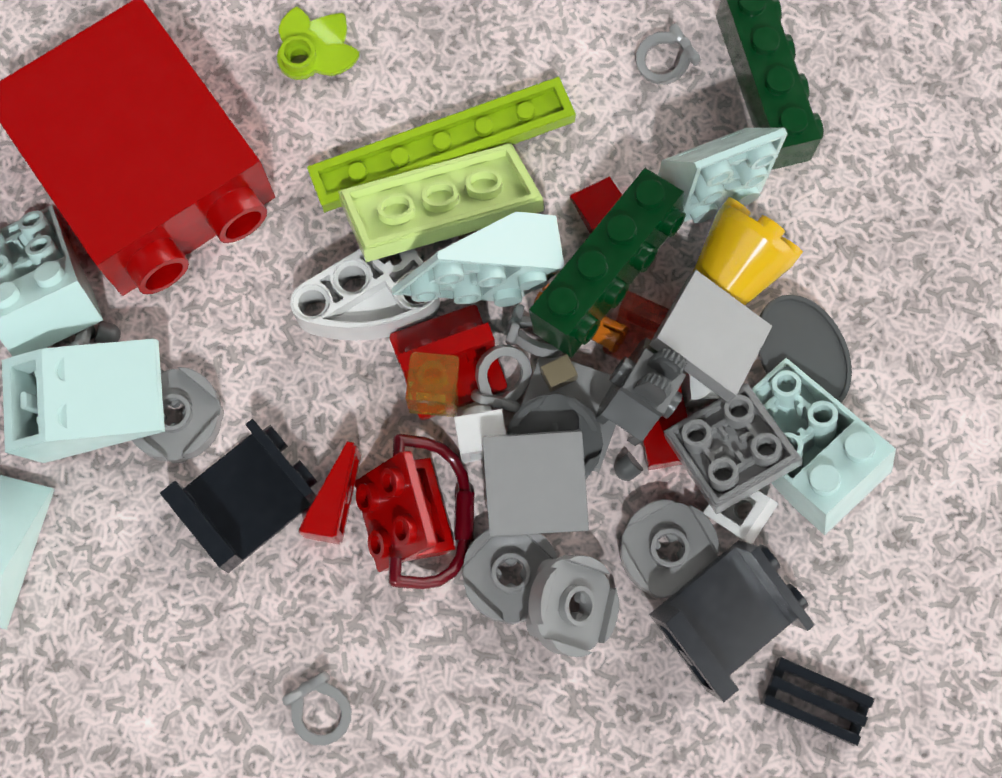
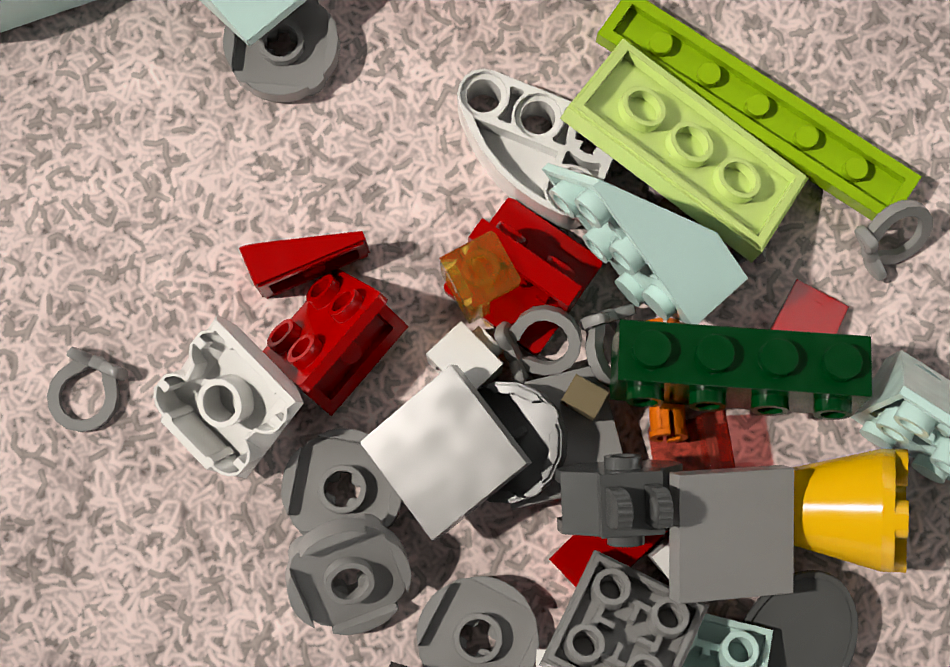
camera: 55 degrees right, 5 degrees up
(243, 498) = (242, 169): black panel -> none
(400, 605) = (227, 400): none -> white slope
(463, 516) = (390, 390): dark red piece -> none
(588, 139) = (869, 236): none -> light grey piece
(627, 467) = (539, 537): dark grey piece -> none

